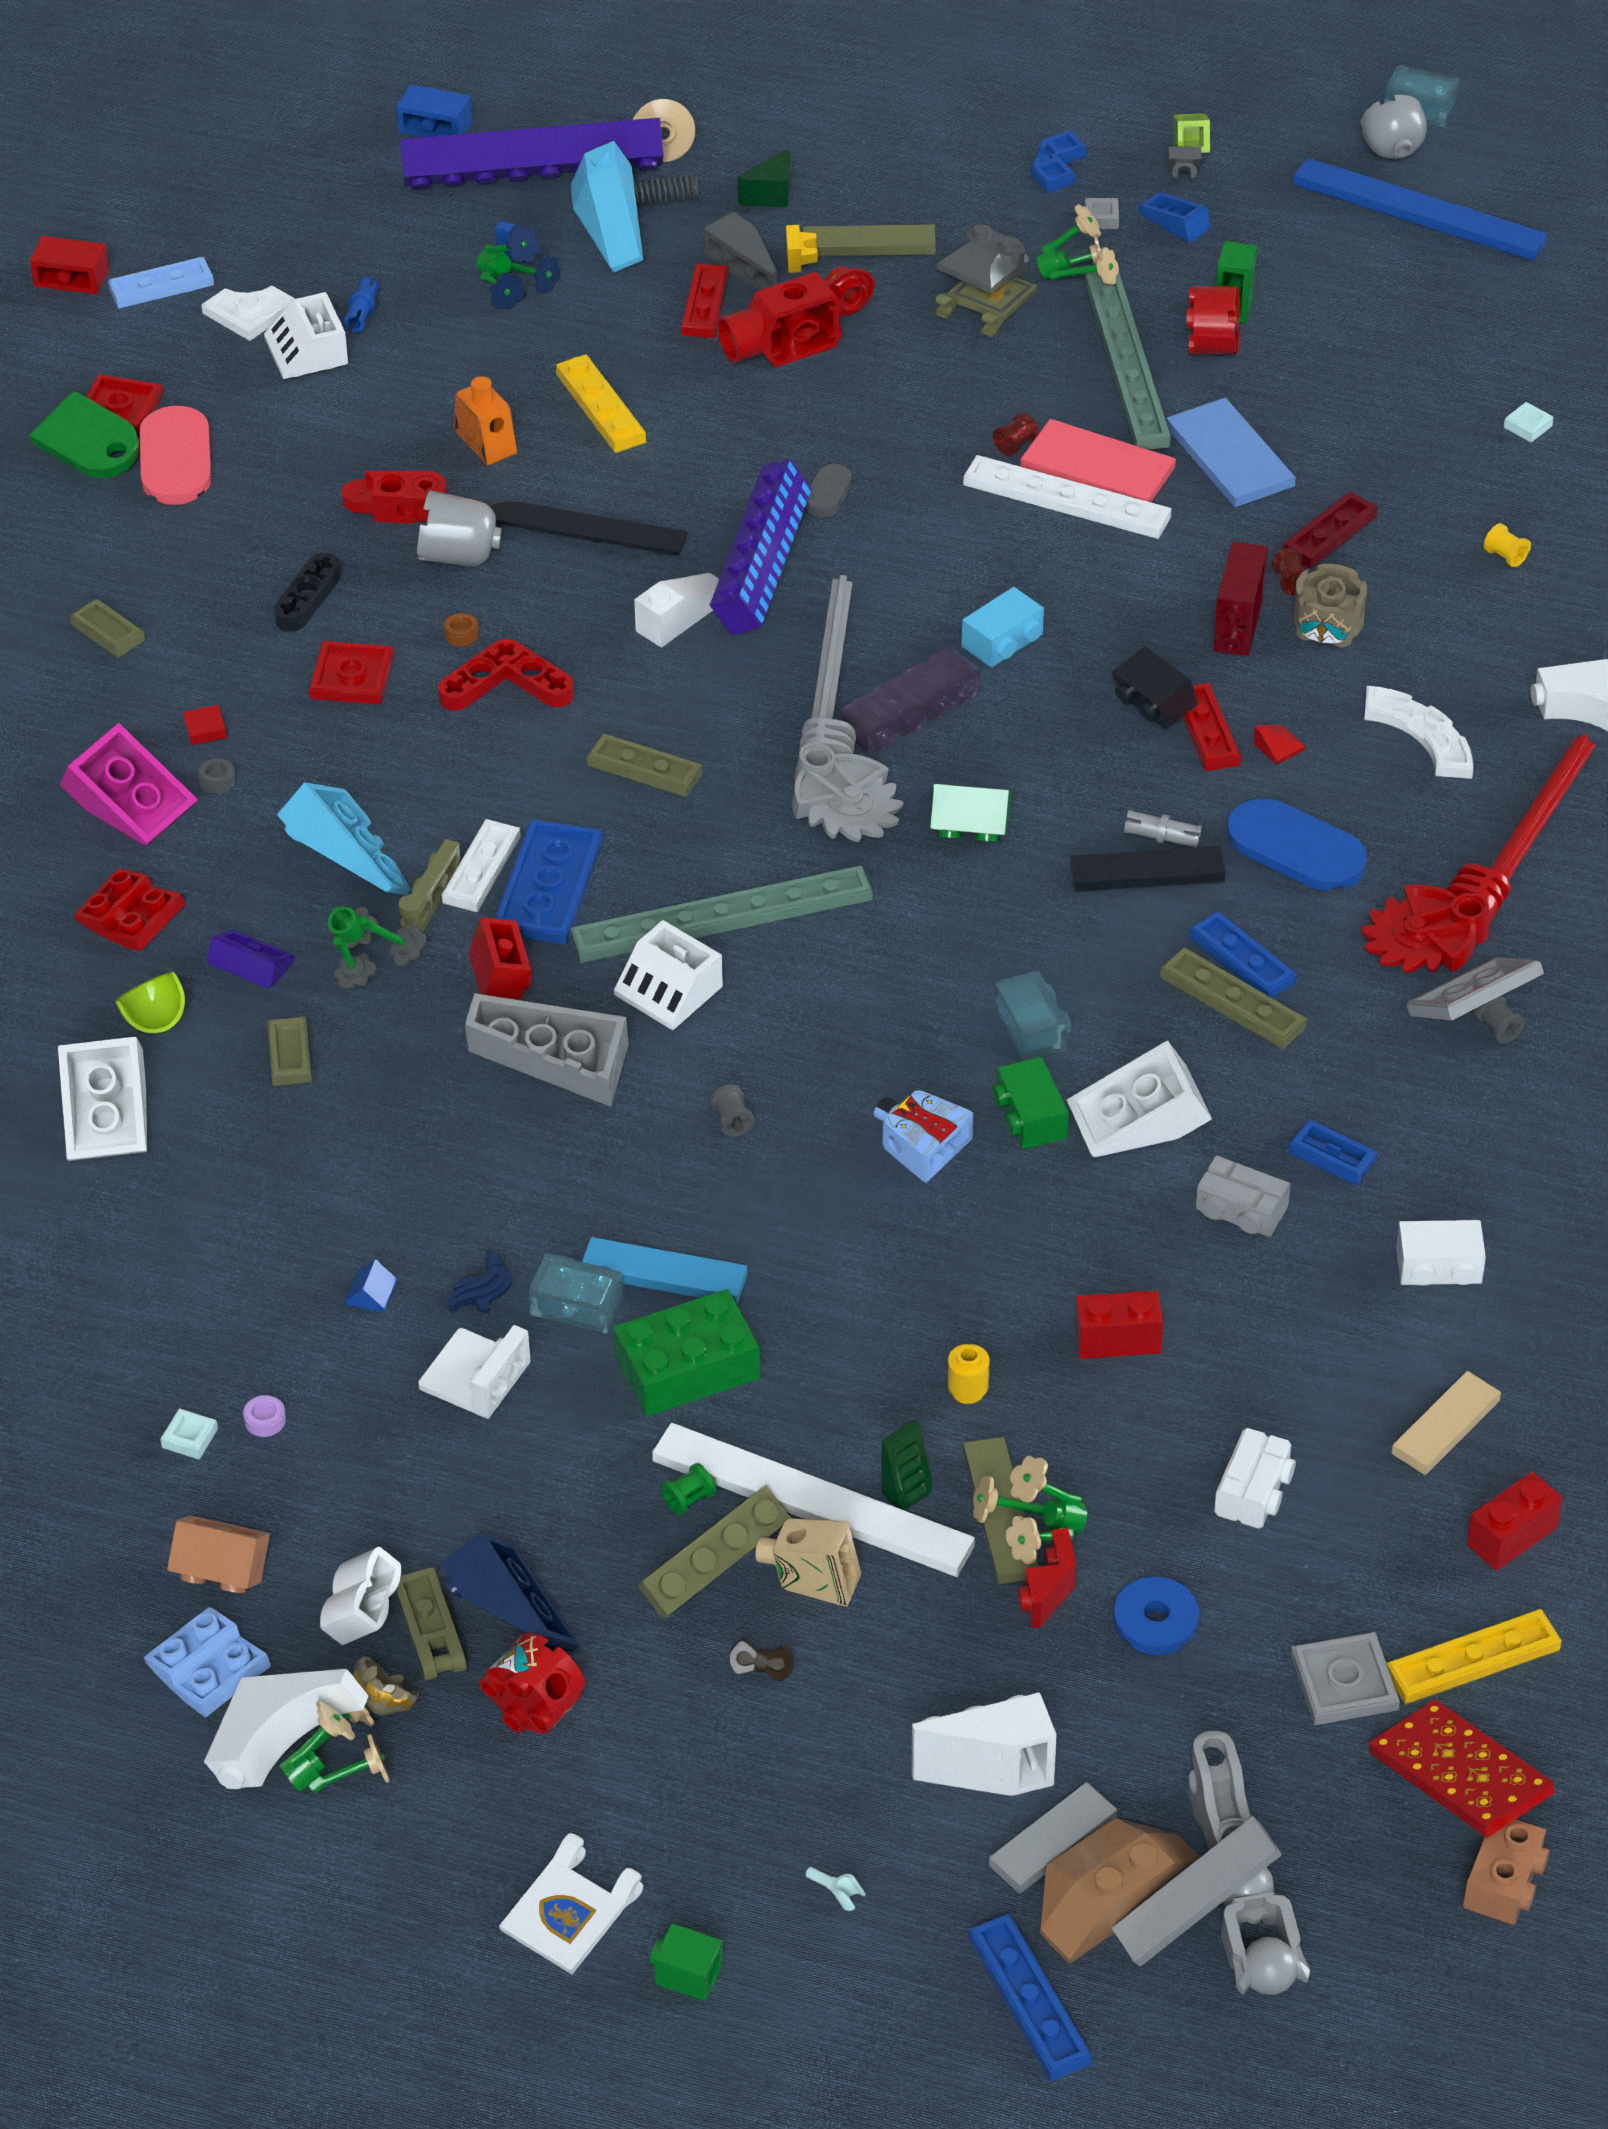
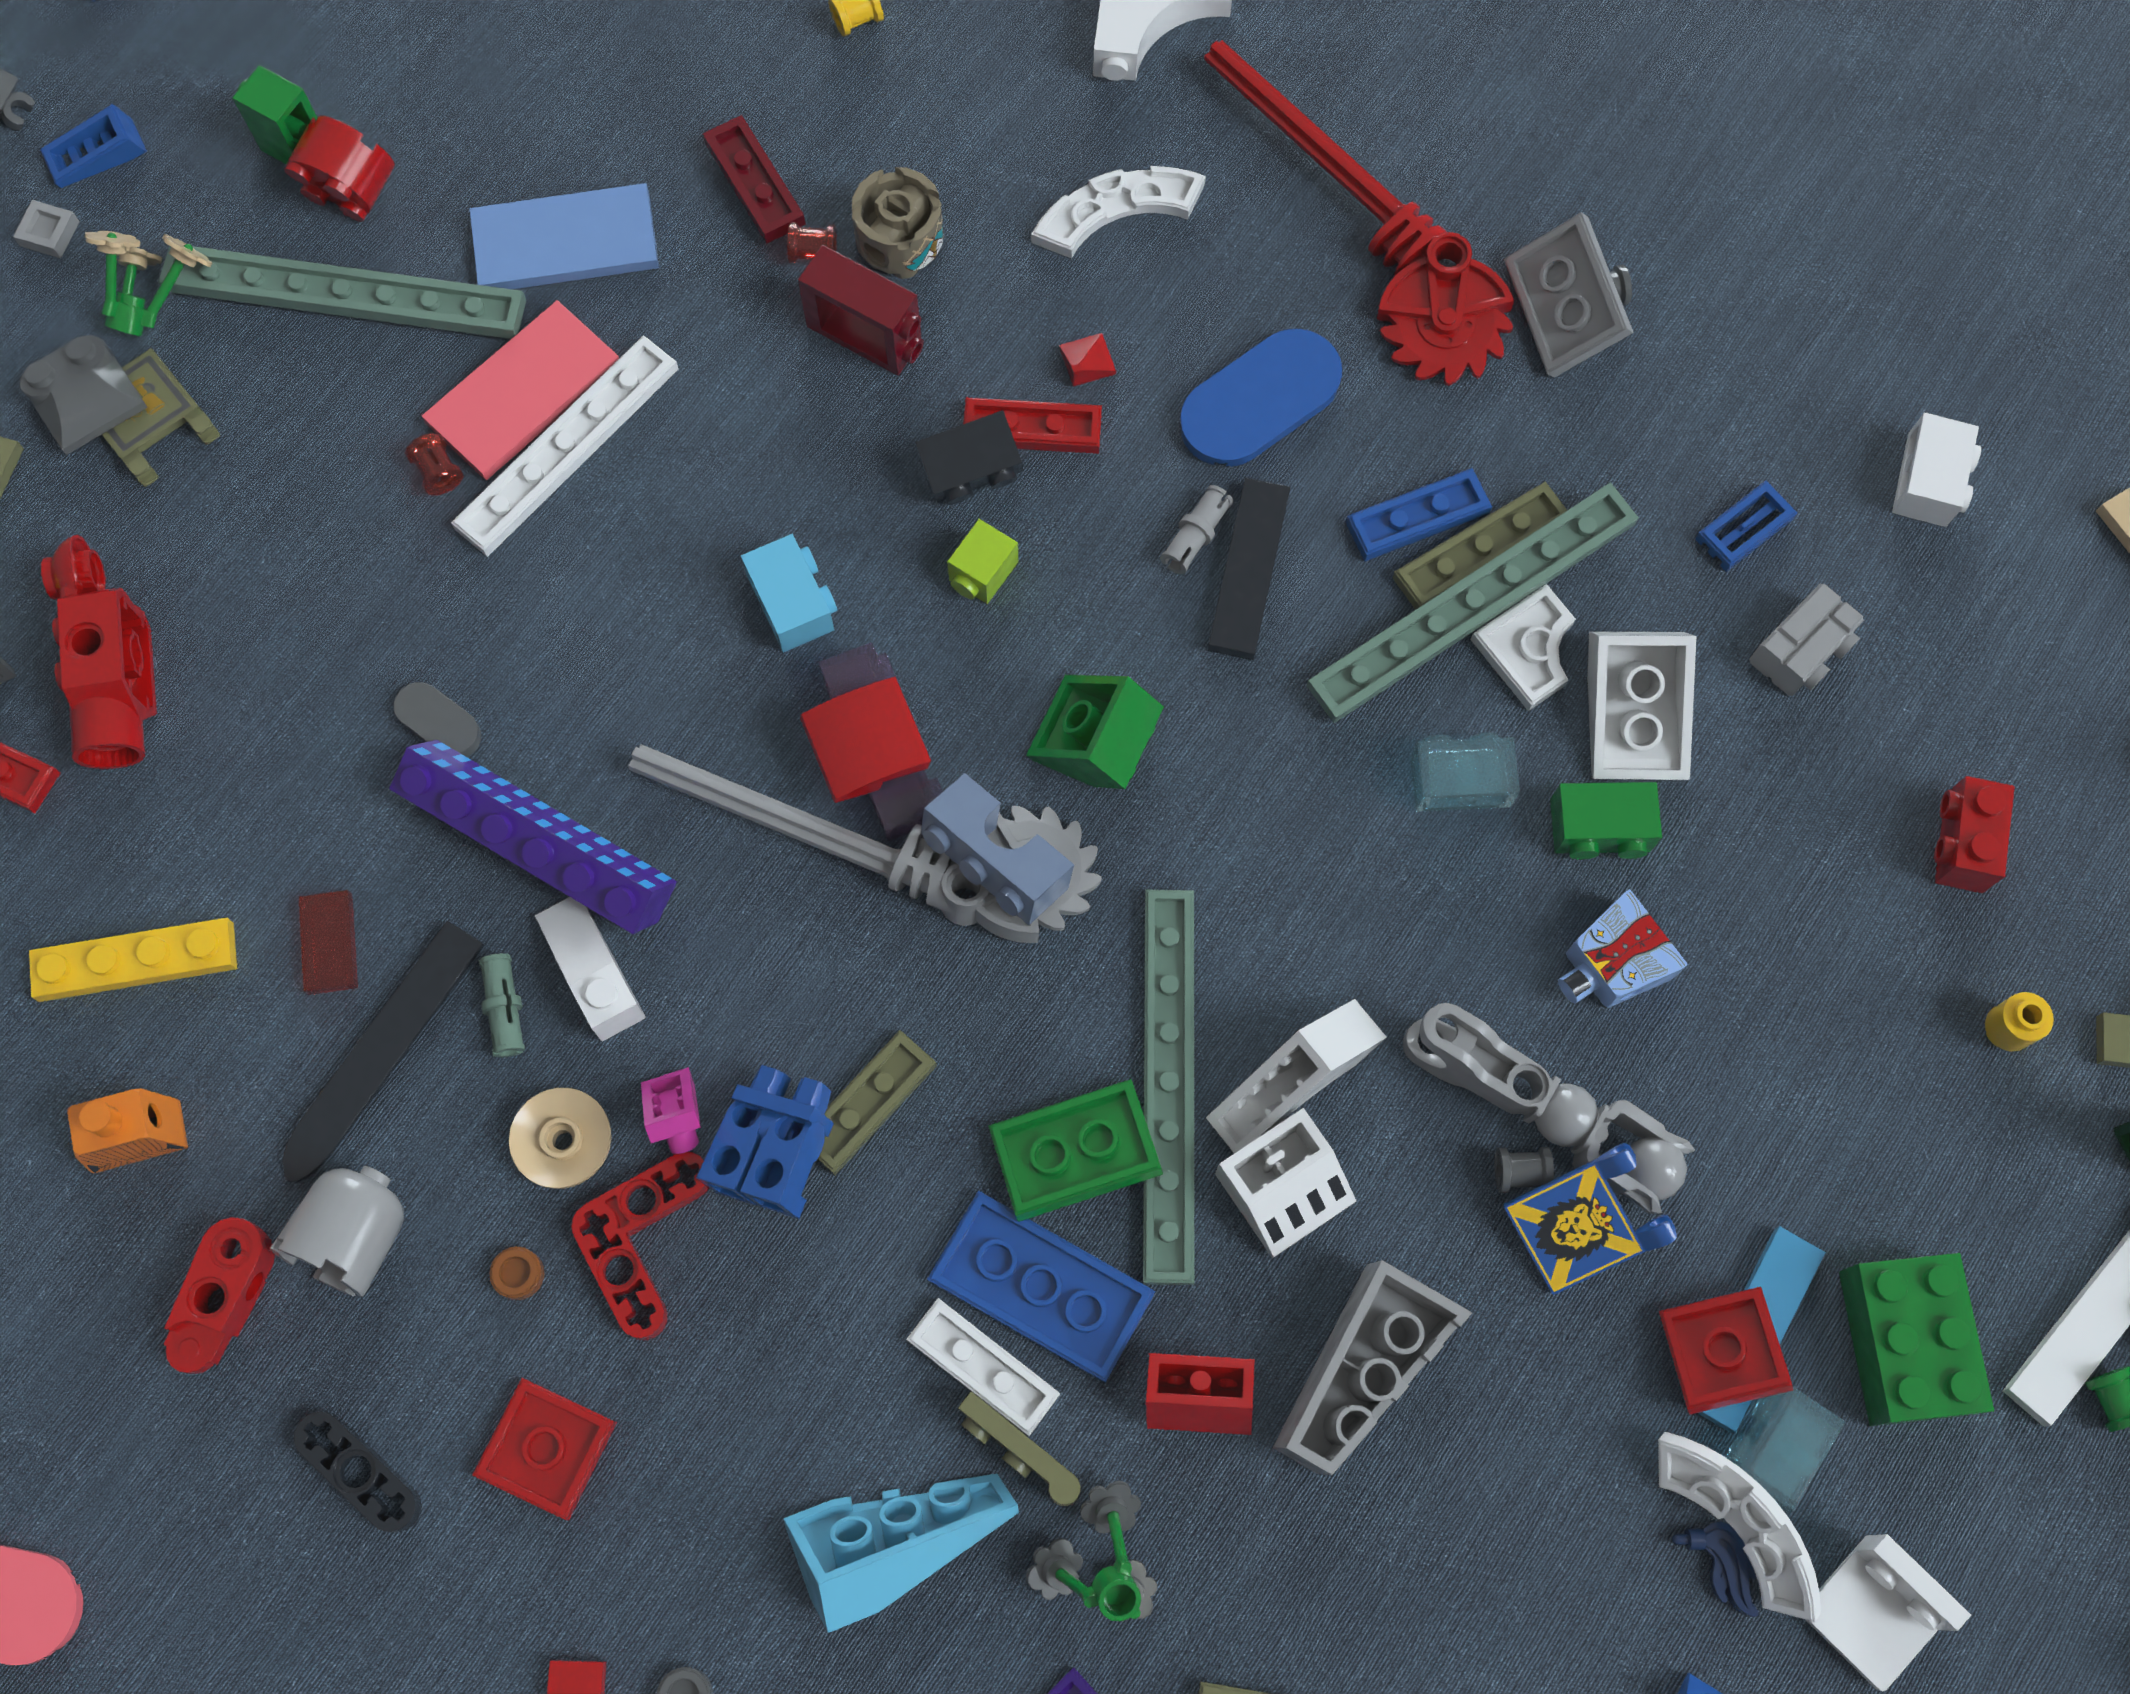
camera: 75 degrees left, 25 degrees up
(525, 1258) = (1770, 1539): none -> white tile
(558, 618) = (539, 1125): none -> tan dish
(593, 710) = (769, 1142): none -> blue hips
(594, 660) = (671, 1110): none -> dark pink tile
(636, 1240) = (1725, 1350): none -> red tile
(639, 572) = (501, 1005): none -> sand green pin
(649, 484) = (328, 942): none -> clear red tile
(650, 868) = (1075, 1150): none -> green tile
(700, 1137) = (1579, 1226): none -> flag
(765, 962) = (1296, 1073): none -> white arch
(782, 1111) = (1564, 1113): none -> light grey piece
(840, 758) = (1020, 878): none -> sand blue arch
(899, 674) = (865, 739): none -> red slope
(1076, 719) = (982, 562): none -> lime brick
(1156, 1027) = (1526, 644): none -> white tile
(1180, 993) = (1471, 602): none -> sand green plate

